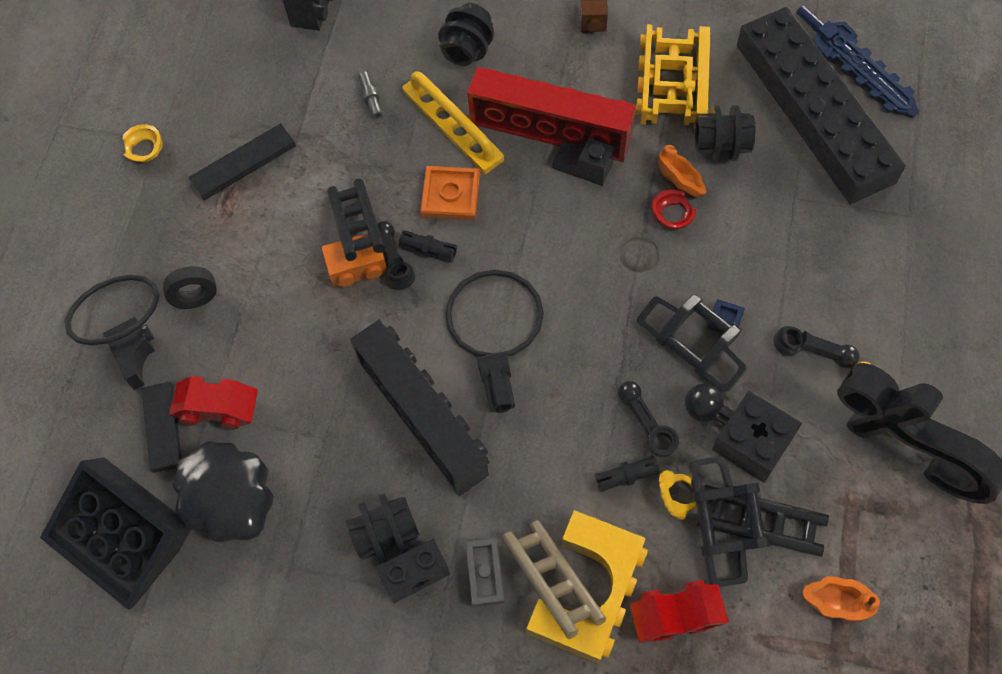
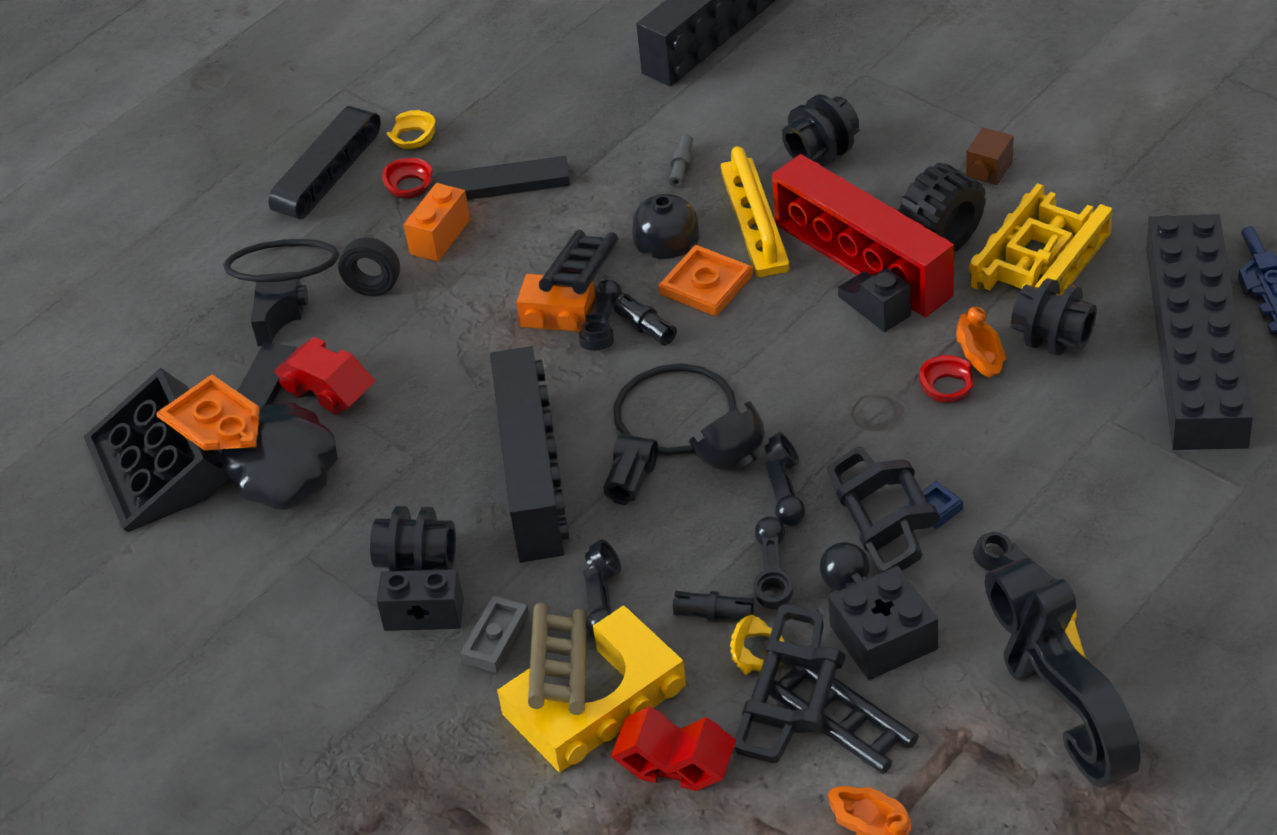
camera: 30 degrees right, 20 degrees down
(89, 202) = (324, 162): none -> black beam
(158, 491) = (214, 416): none -> orange tile
(159, 180) = (403, 169): none -> red piece
(217, 223) = (437, 222): none -> orange brick
(395, 159) = (665, 226): none -> black cylinder
(529, 476) = (602, 565): none -> black piece
(559, 327) = (731, 439): none -> black cylinder
(599, 67) = (945, 203): none -> black tyre
(631, 366) = (783, 456): none -> black piece

